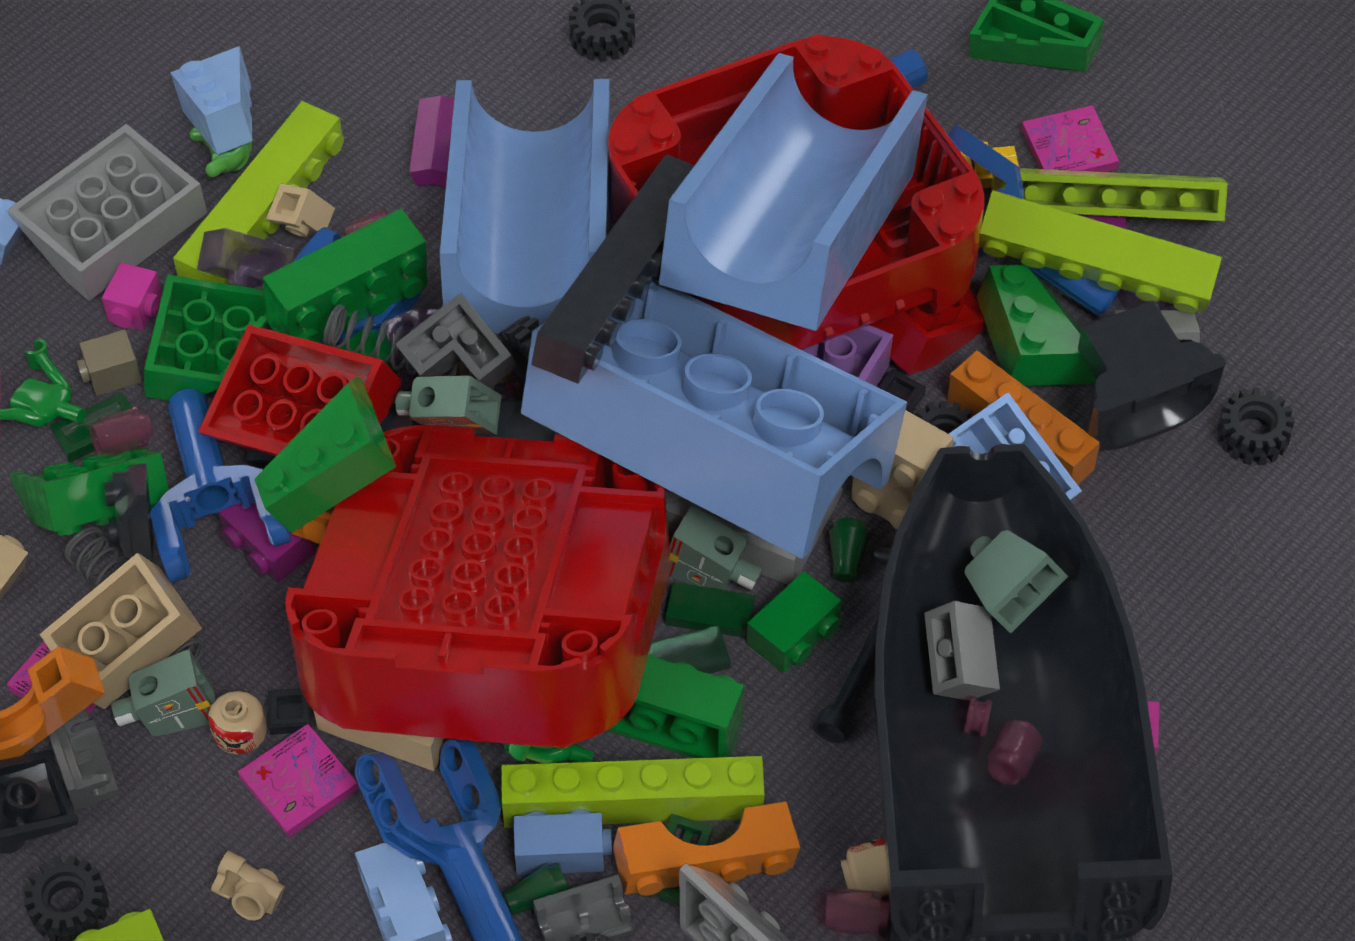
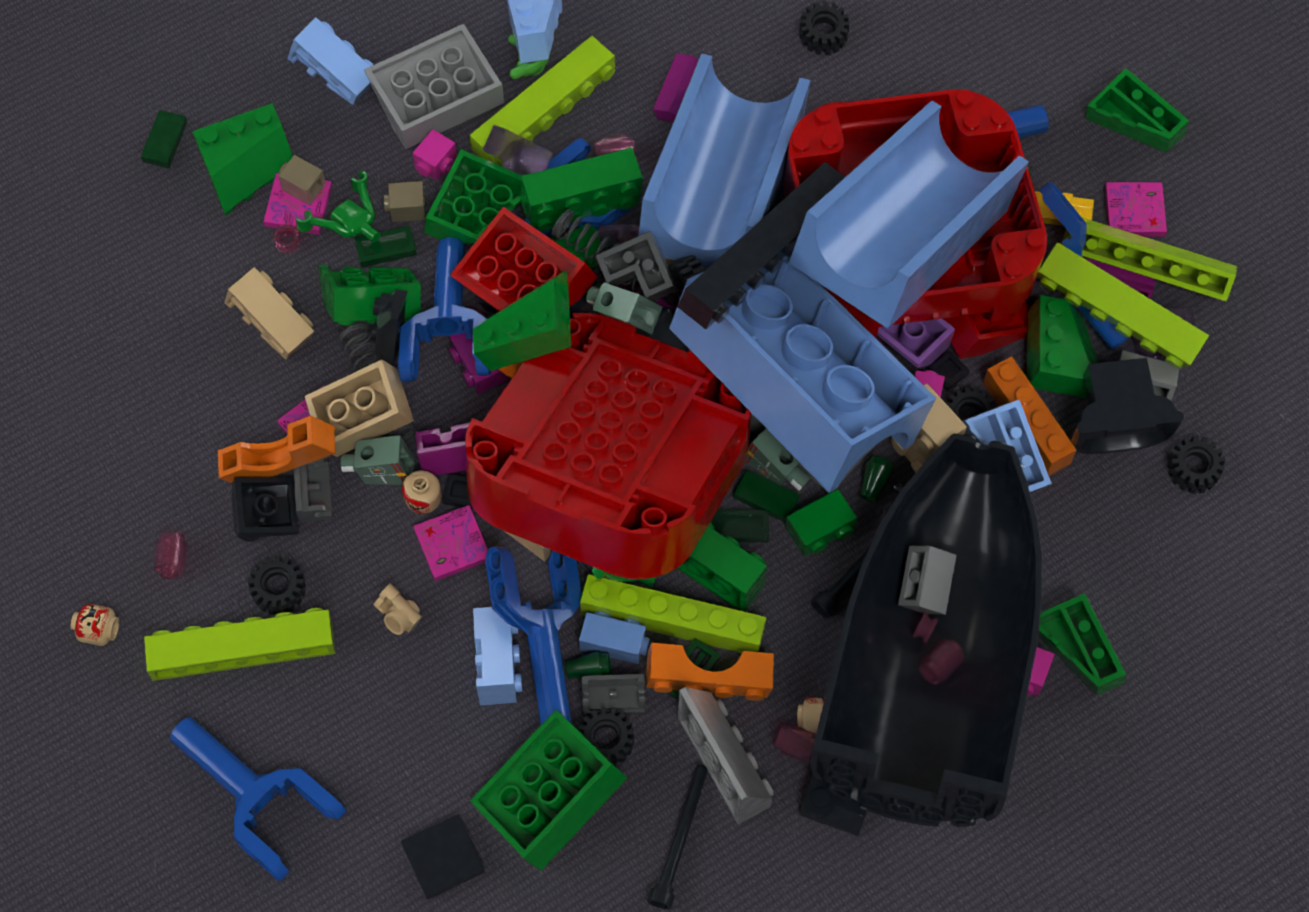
camera: 15 degrees right, 10 degrees up
(121, 432) = (400, 257): clear pink brick -> none
(257, 659) = (442, 452): none -> magenta brick
(300, 210) = (567, 121): tan brick -> none
(1011, 577) = (976, 538): sand green torso -> none
(1196, 683) = (1081, 644): none -> green wedge

